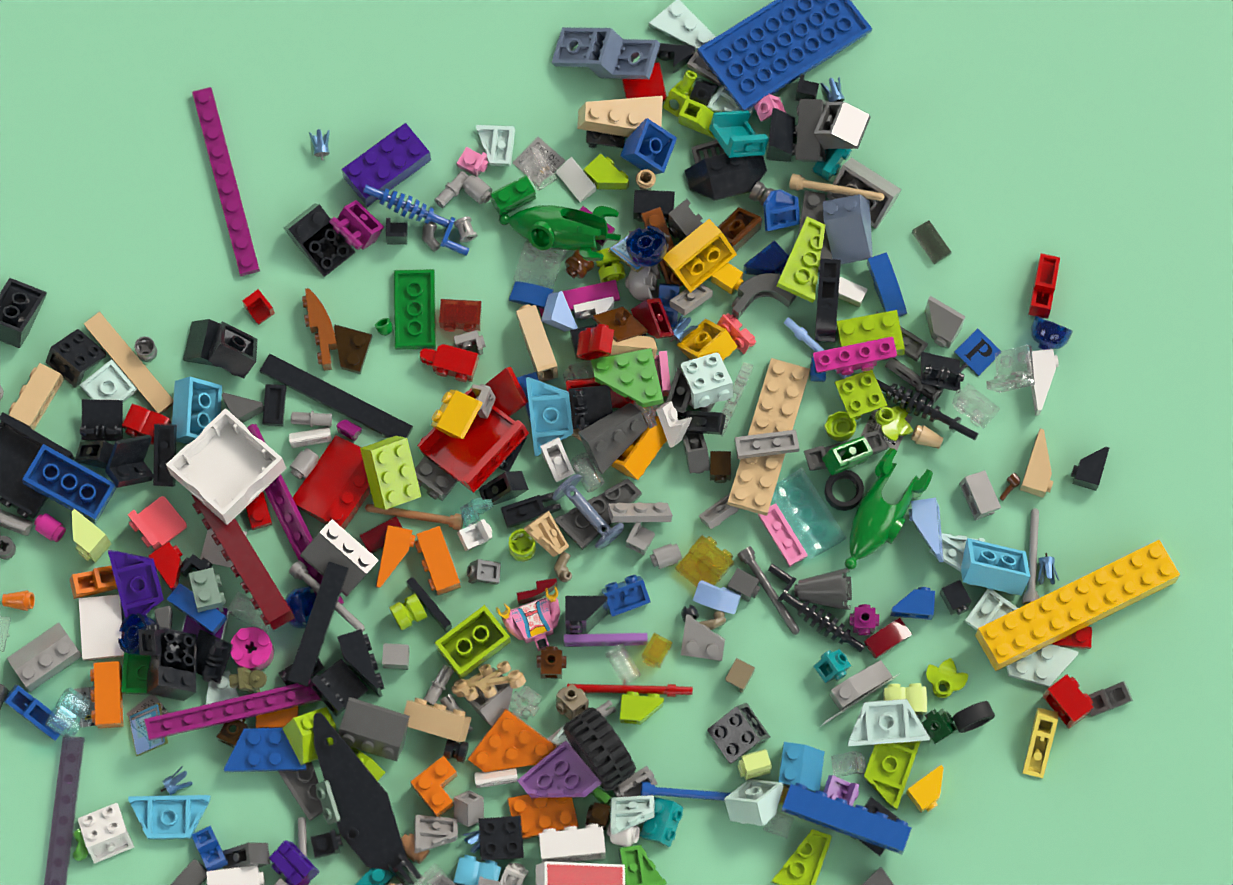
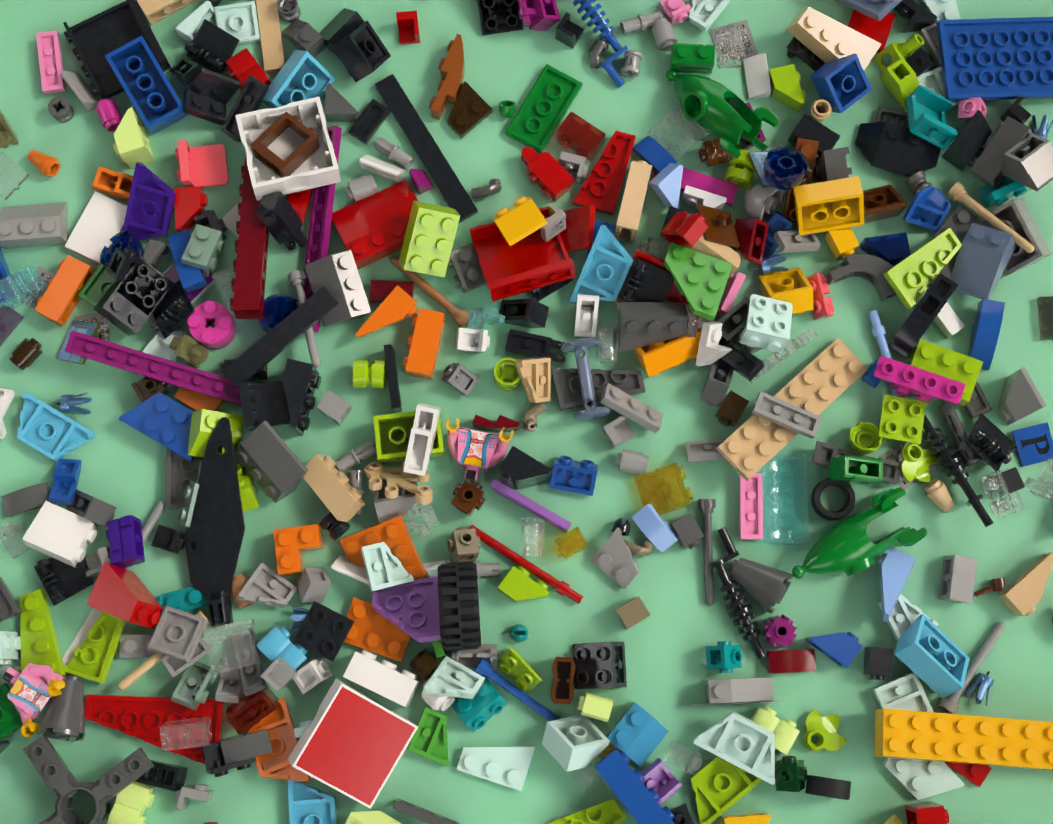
camera: 30 degrees right, 5 degrees up
(72, 412) = (190, 26): none -> light aqua slope
(108, 765) = (26, 353): none -> dark brown brick
(174, 365) = (304, 37): none -> dark grey slope
(217, 483) = (297, 158): none -> reddish brown window
(257, 528) = (281, 220): none -> black hinge
(414, 399) = (485, 191): none -> dark grey arm
(487, 636) = (422, 439): none -> white slope
(503, 338) = (607, 175): none -> red wing
(518, 757) = (383, 567): none -> light aqua wing
(661, 750) = (519, 638): none -> teal hinge
(677, 773) = (517, 668): none -> lime hinge
(705, 859) = (498, 764): none -> light aqua wing
(713, 755) = (562, 687): none -> reddish brown brick
(975, 391) = (1013, 480): none -> black tile

